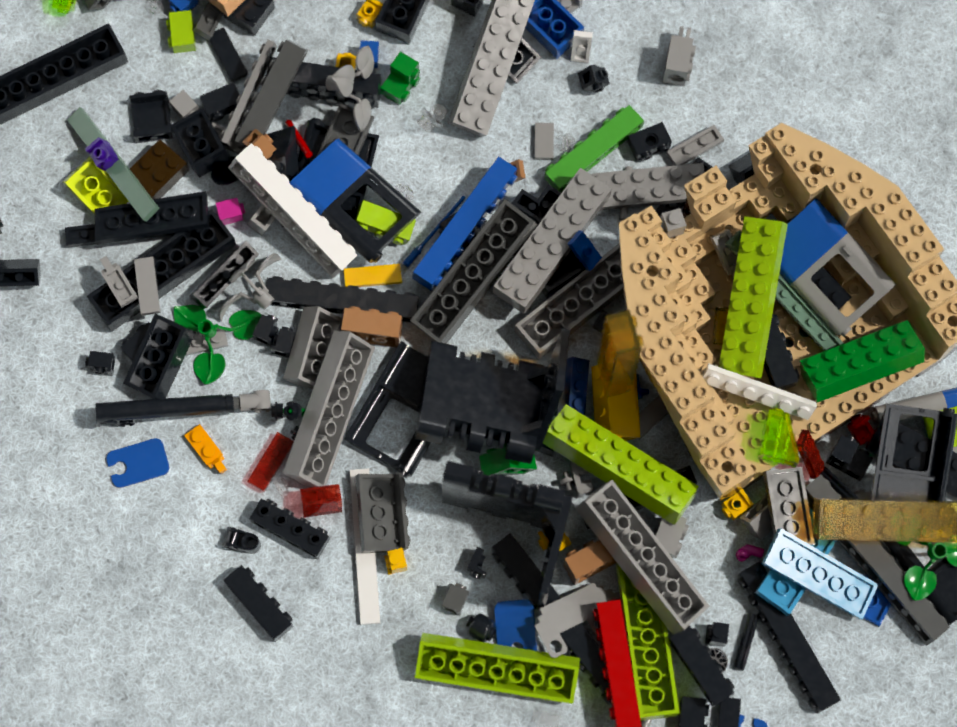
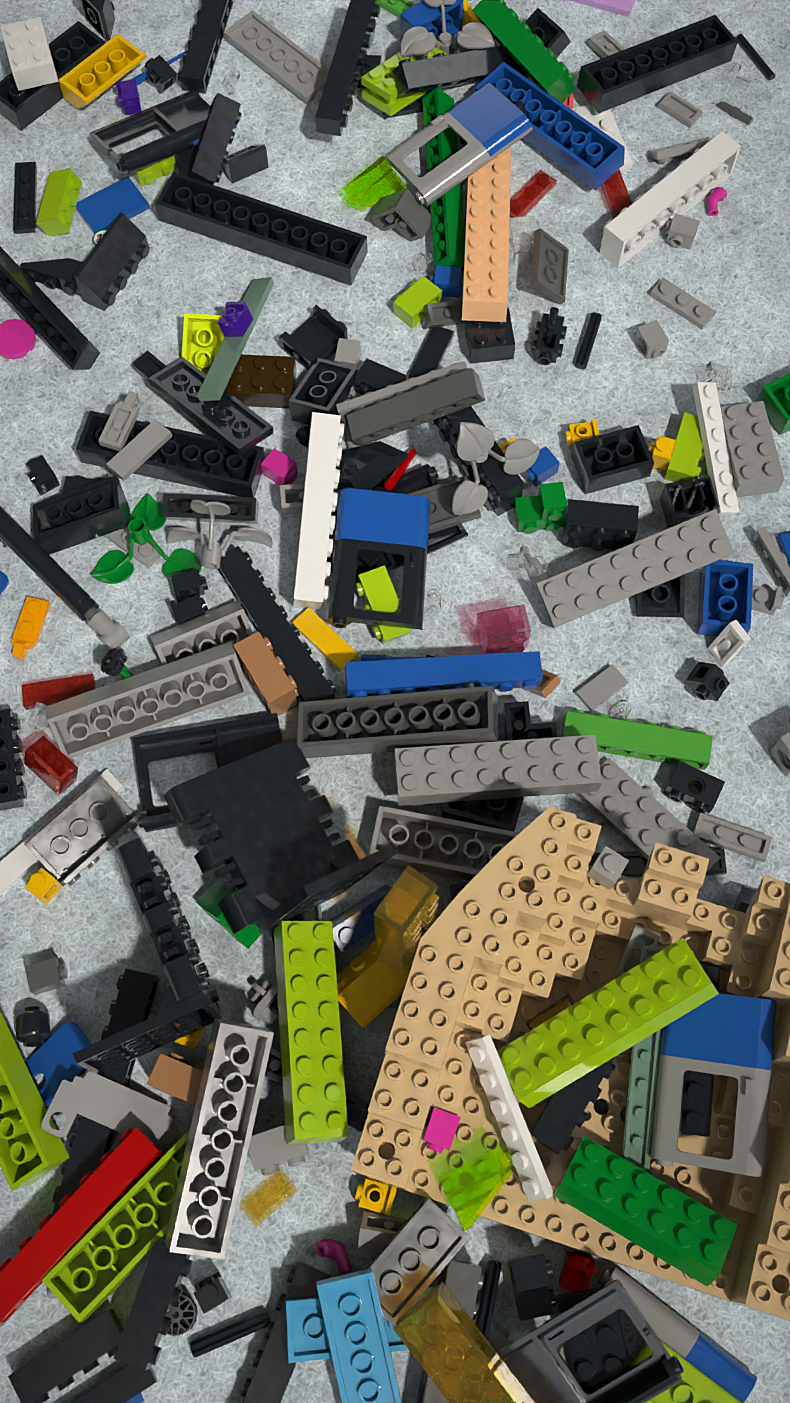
camera: 55 degrees right, 5 degrees down
(262, 141) = (358, 436): medium nougat brick -> none
(443, 54) = (599, 525): none -> black brick
(463, 166) = (503, 630): none -> clear pink brick
(477, 560) = (105, 965): black bracket -> none
(584, 250) = (512, 808): blue plate -> none
(689, 563) = (268, 1198): none -> clear yellow tile
(741, 435) = (440, 1130): none -> dark pink brick
(810, 454) = (492, 1235): clear red plate -> none

